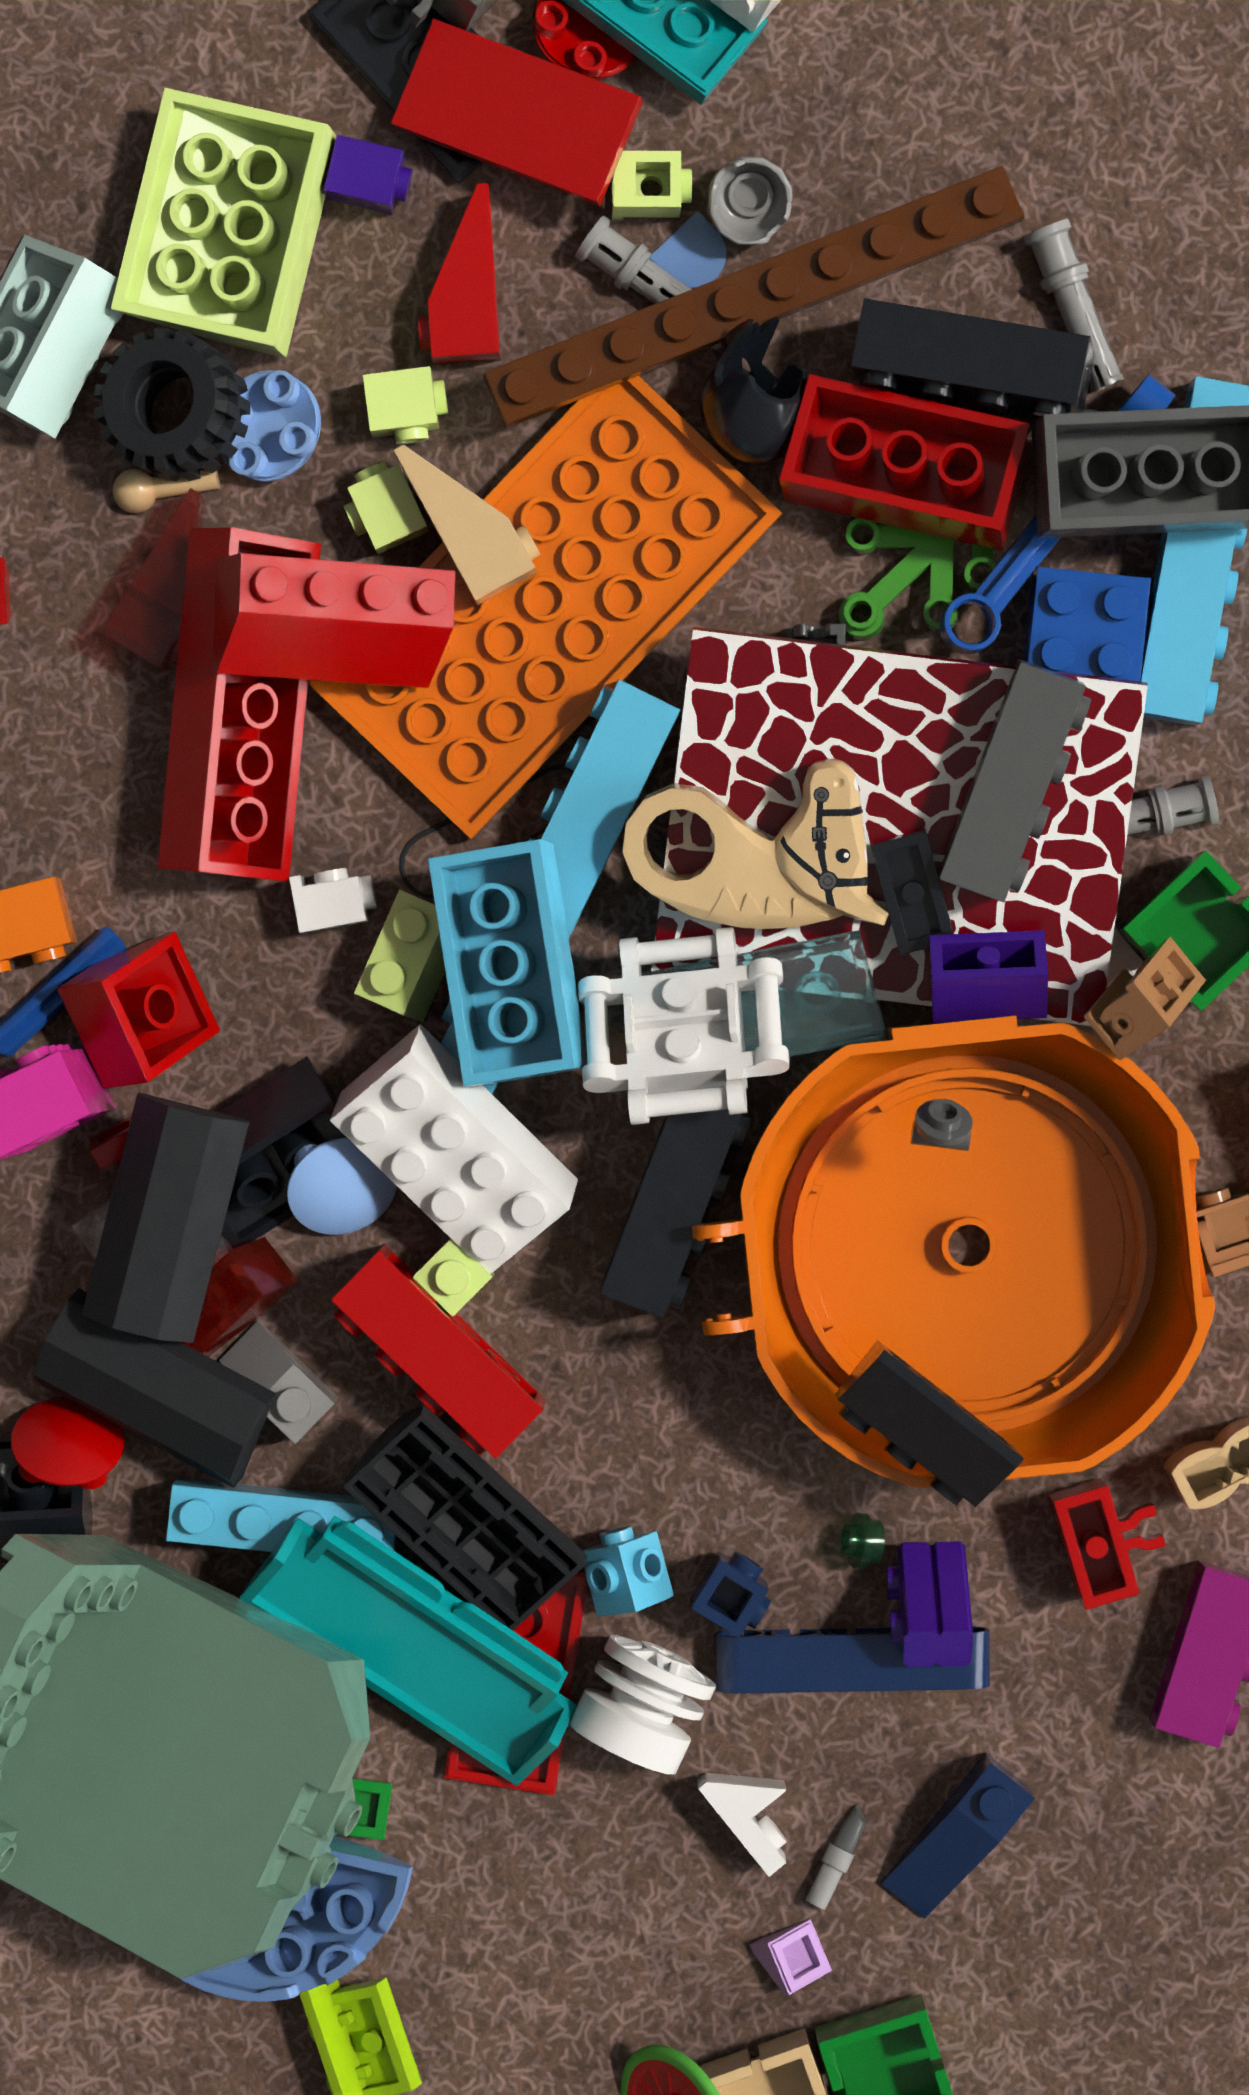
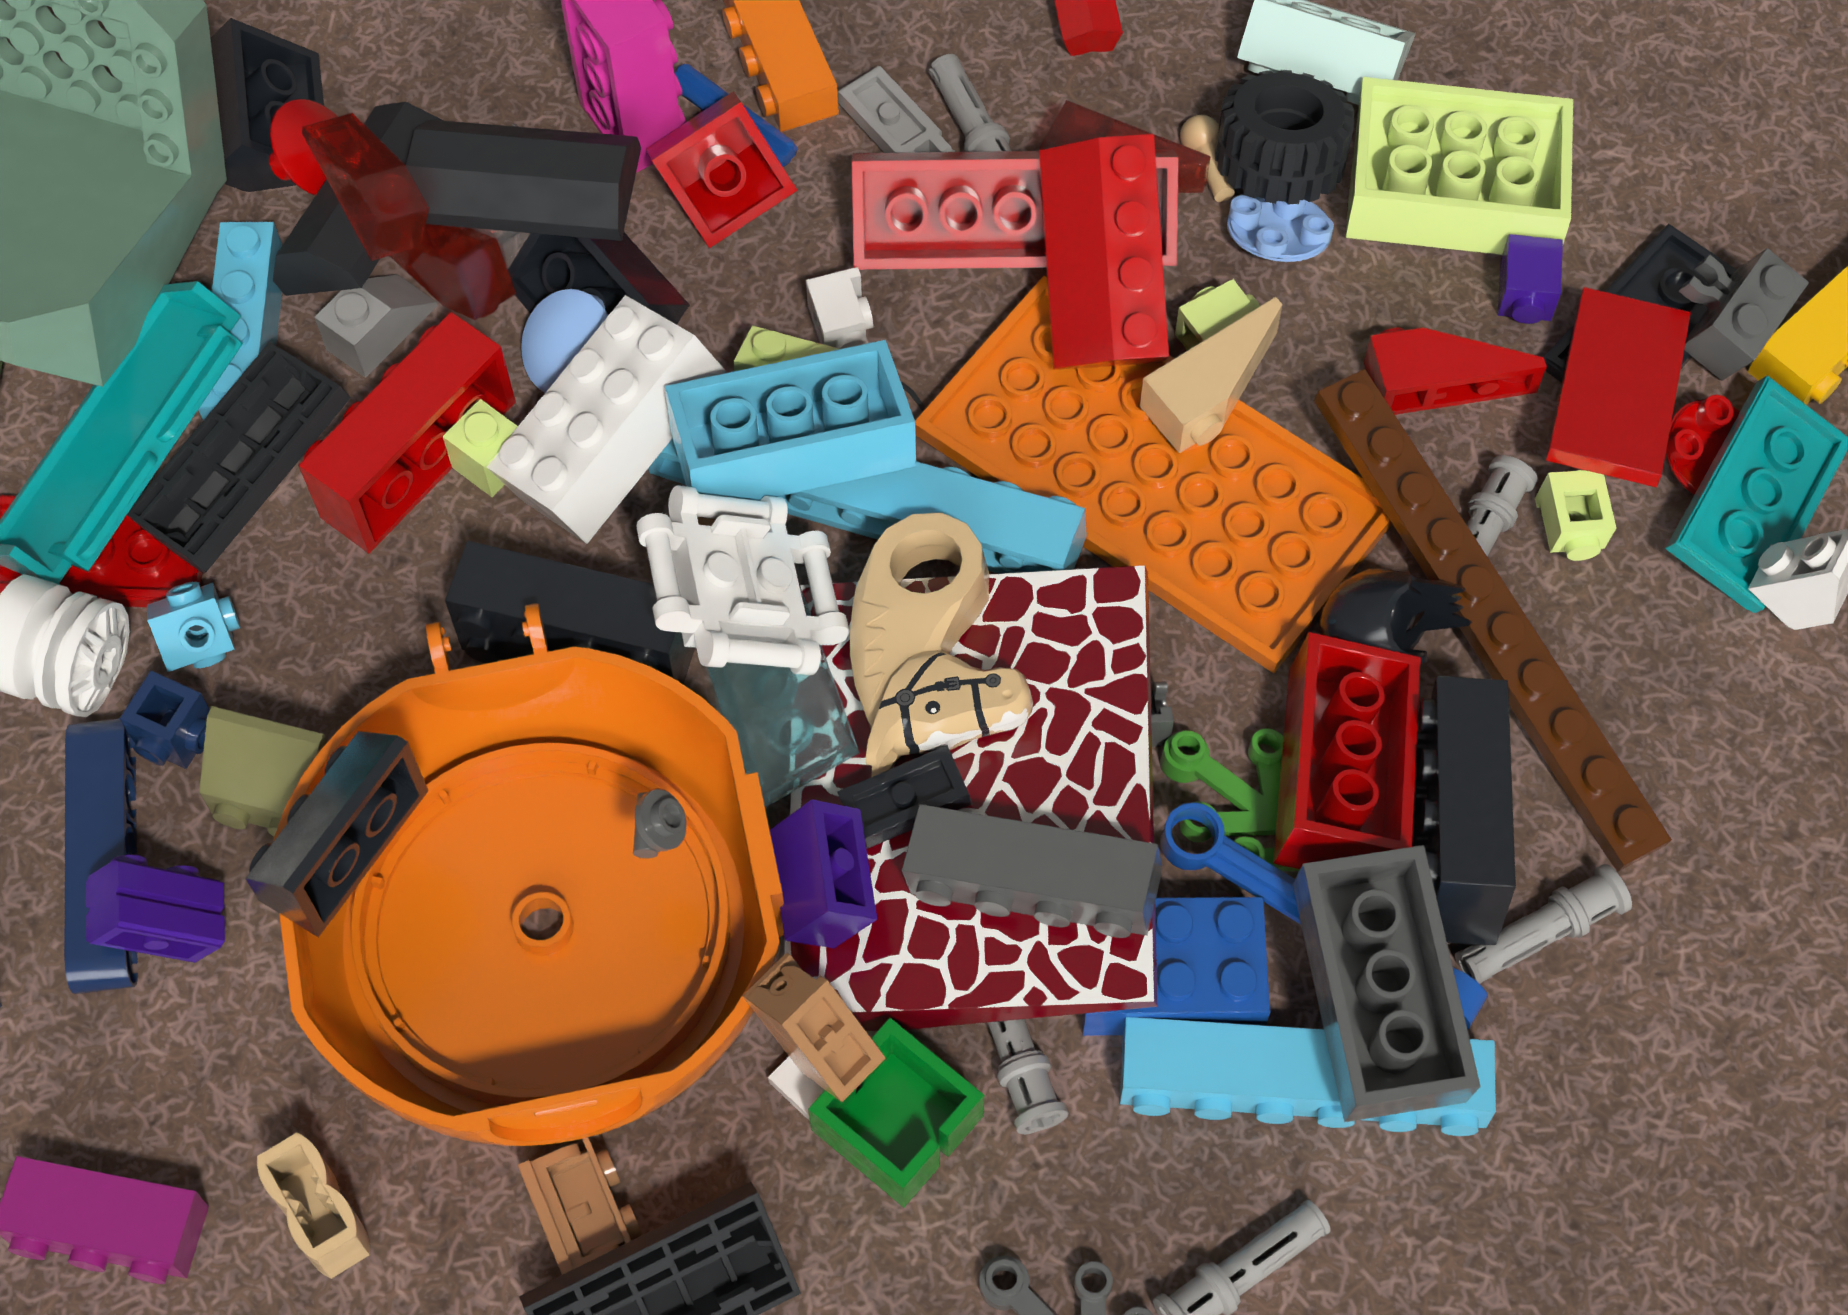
camera: 85 degrees right, 25 degrees down
(91, 817) = (890, 115): none -> light grey hinge
(124, 724) = (967, 107): none -> light grey pin
(161, 1383) = (369, 185): none -> clear red slope
(404, 404) = (1321, 328): yellowish green brick -> none
(693, 252) = (1521, 569): medium blue piece -> none
(750, 184) = (1589, 591): light grey hair -> none
(803, 1499) = (253, 767): none -> olive slope
(862, 1541) = (226, 850): clear green plate -> none
(1096, 1544) = (223, 1076): red brick -> none

